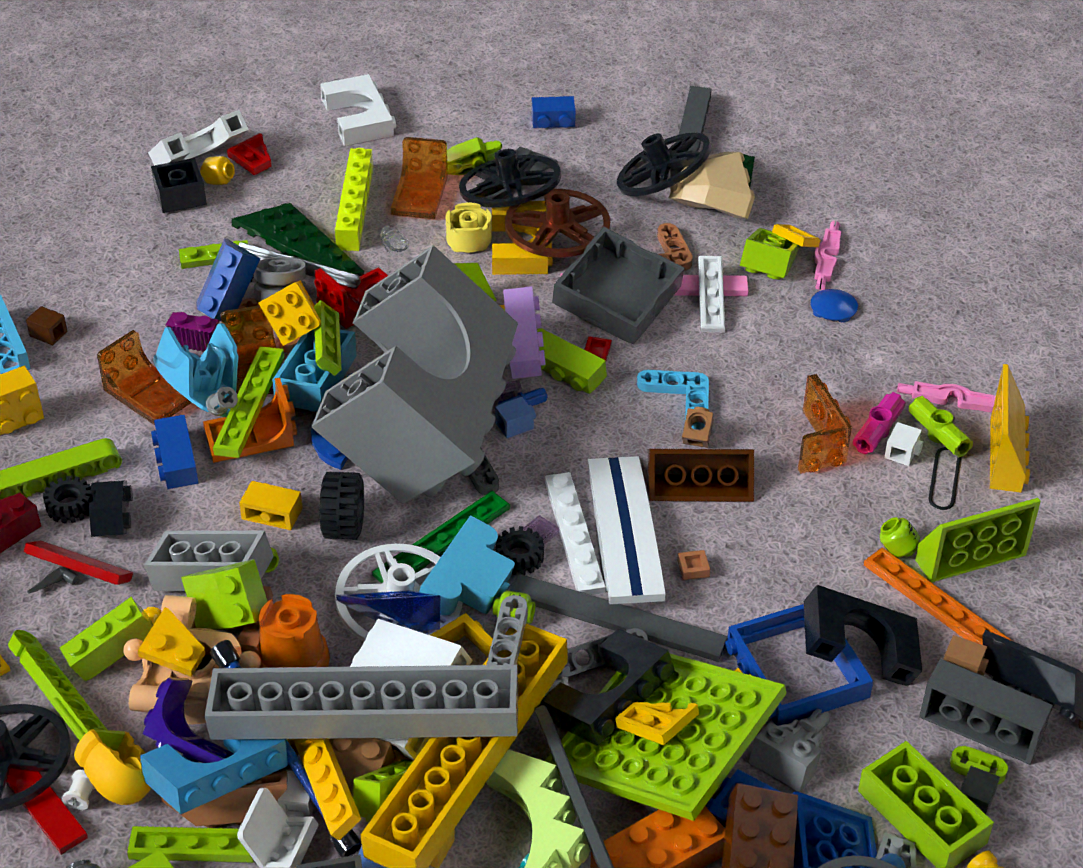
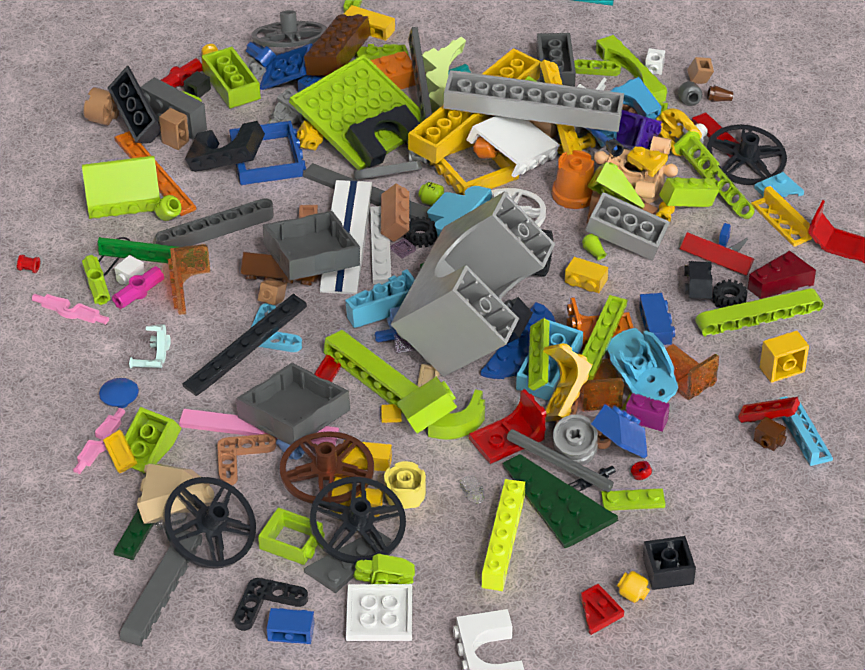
camera: 170 degrees left, 0 degrees up
(42, 337) = (770, 409): none -> red plate
(62, 591) = (724, 235): none -> blue tile
(199, 277) = (641, 470): none -> red tile
(219, 399) = (621, 325): light grey bush -> none
(220, 133) = (679, 606): white arch -> none
(404, 608) = (513, 165): clear blue slope -> none
(421, 178) = (440, 544): clear orange bracket -> none
(466, 125) = (379, 612): none -> white plate
(509, 642) = (445, 130): light grey beam -> none
(521, 306) = (382, 358): lavender brick -> none
(541, 432) = (376, 304): none -> medium azure wedge
(561, 553) = (395, 212): none -> nougat brick
(586, 169) = (284, 518): none -> lime window
(587, 142) = (266, 593): none -> black beam
(655, 721) = (365, 102): yellow wing -> none
(660, 449) = (311, 245): none -> dark grey tile
(703, 364) = (244, 345): none -> black tile
(711, 294) = (216, 405): white tile -> none
(811, 339) = (162, 343): none -> light aqua piece
(818, 524) = (217, 224): none -> dark grey beam
(887, 471) = (138, 250): none -> green tile
(1008, 437) = (58, 255): yellow slope -> none
(1019, 814) = (179, 74): none -> red piece
(1044, 443) = (28, 263): none -> red bush

